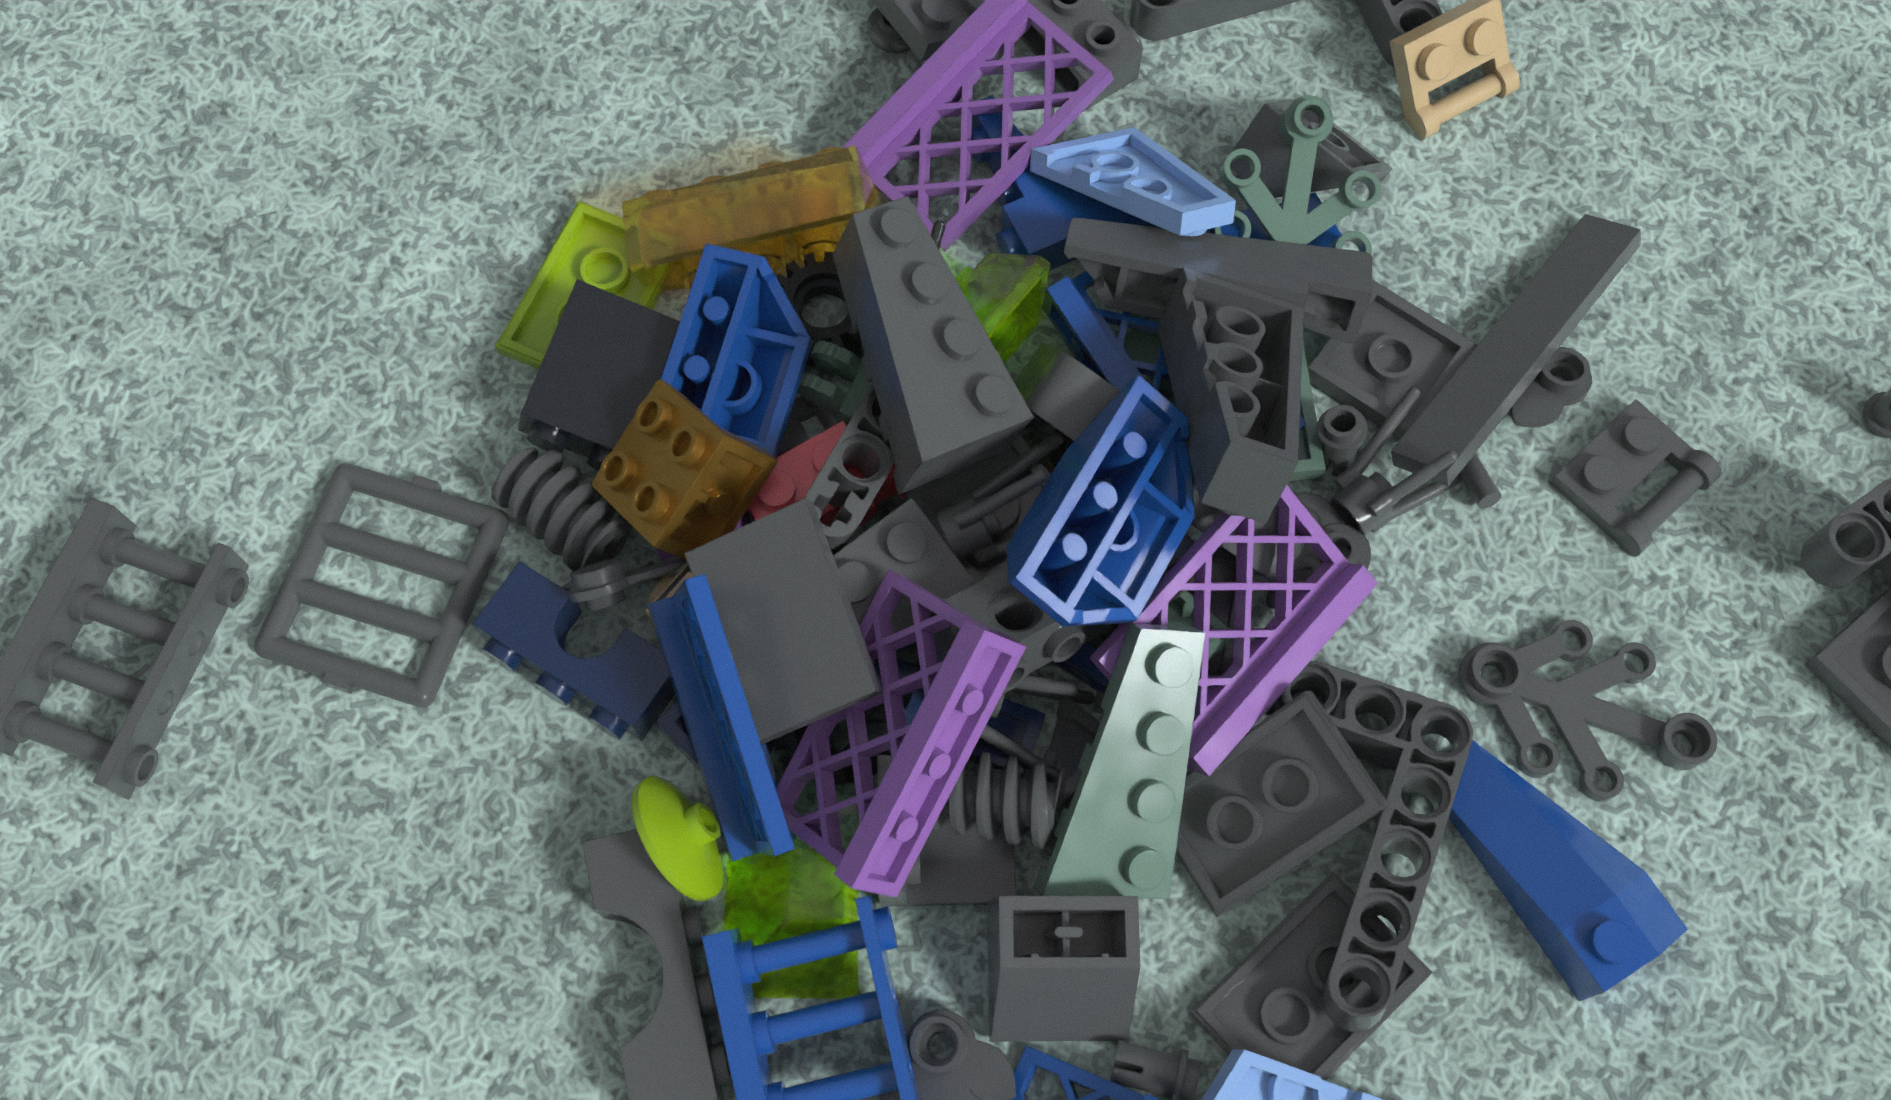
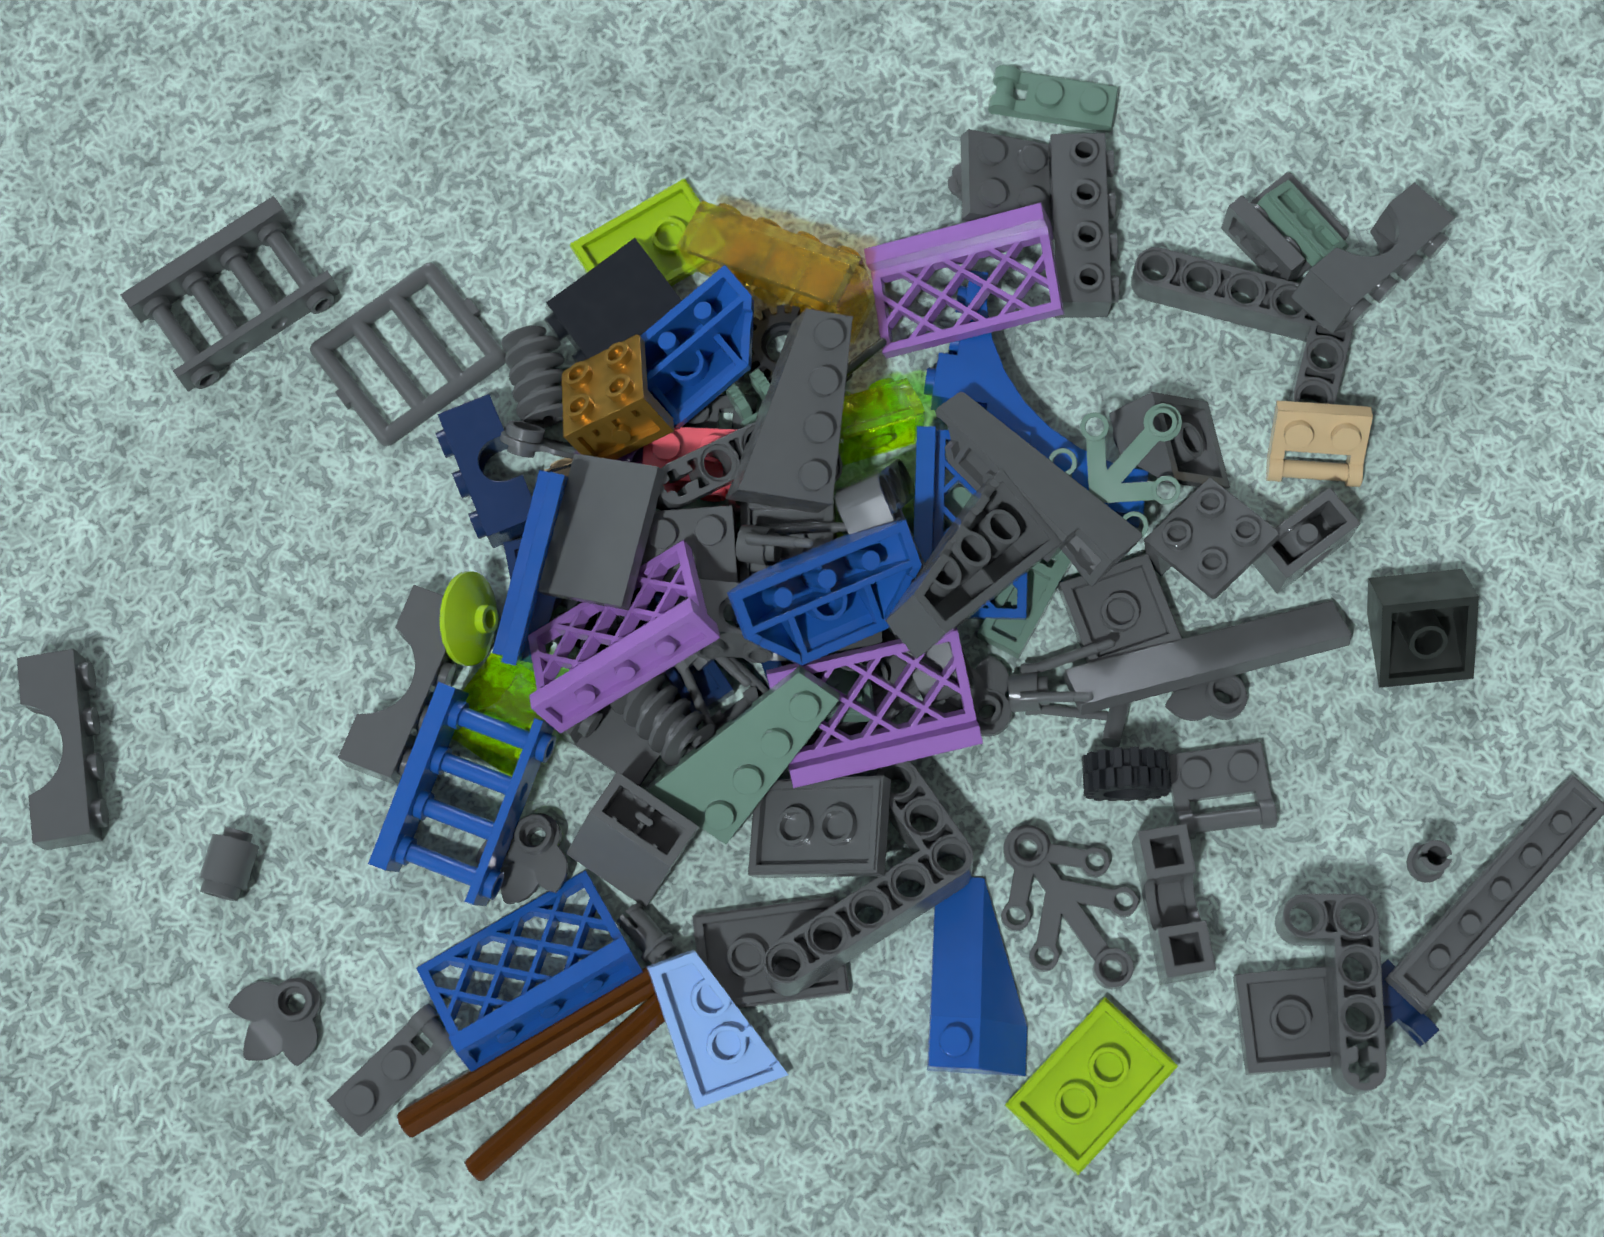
camera: 40 degrees right, 5 degrees up
(1137, 178) = (1027, 389): light blue wing -> none
(1341, 434) = (1042, 639): dark grey pin -> none
(1437, 217) = (1210, 539): none -> dark grey bracket
(1520, 166) = (1307, 540): none -> dark grey brick
(1542, 518) = (1126, 774): none -> black tyre
(1696, 179) = (1422, 627): none -> pearl dark grey slope
(1731, 661) = (1166, 883): none -> dark grey arch
(1764, 890) = (1091, 1086): none -> lime tile

